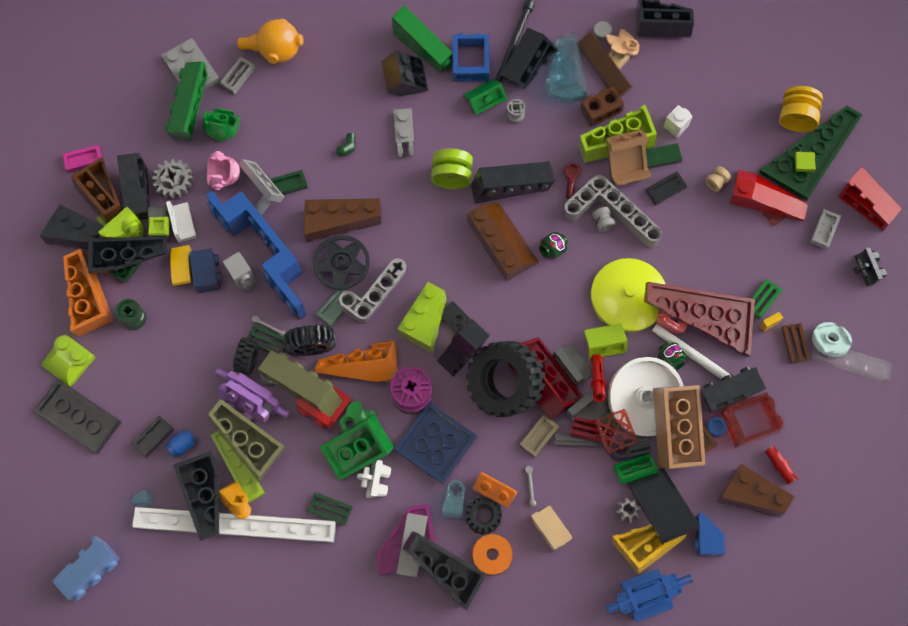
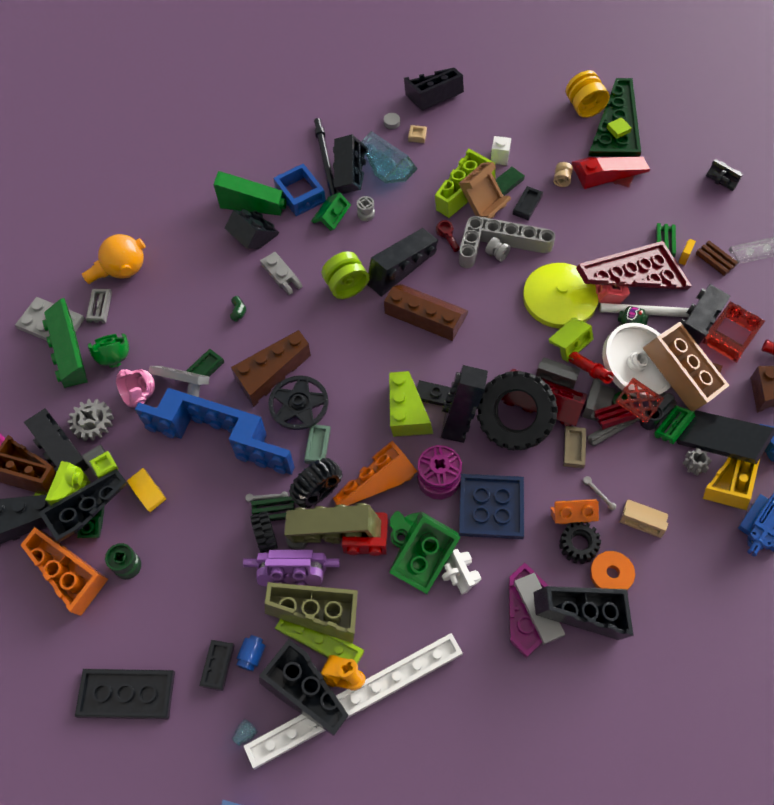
camera: 30 degrees left, 10 degrees down
(67, 360) = (81, 644): lime slope -> none
(181, 222) = (123, 452): white panel -> none
(204, 270) = (173, 481): dark blue brick -> none
(239, 272) = (209, 461): light grey brick -> none
(314, 503) = (455, 621): dark green tile -> none
(376, 289) = (348, 406): light grey beam -> none
(454, 504) = (546, 548): clear light blue piece -> none
(553, 245) = (472, 289): dark green head -> none
(604, 64) = (413, 141): reddish brown tile -> none
(604, 109) = (432, 170): reddish brown brick -> none
(624, 43) = (416, 120): light nougat plate -> none
(716, 426) = (711, 352): blue tile -> none
(825, 229) = (670, 167): light grey plate -> none
(828, 347) = (742, 239): light aqua tile -> none
(869, 199) = (686, 128): wedge -> none

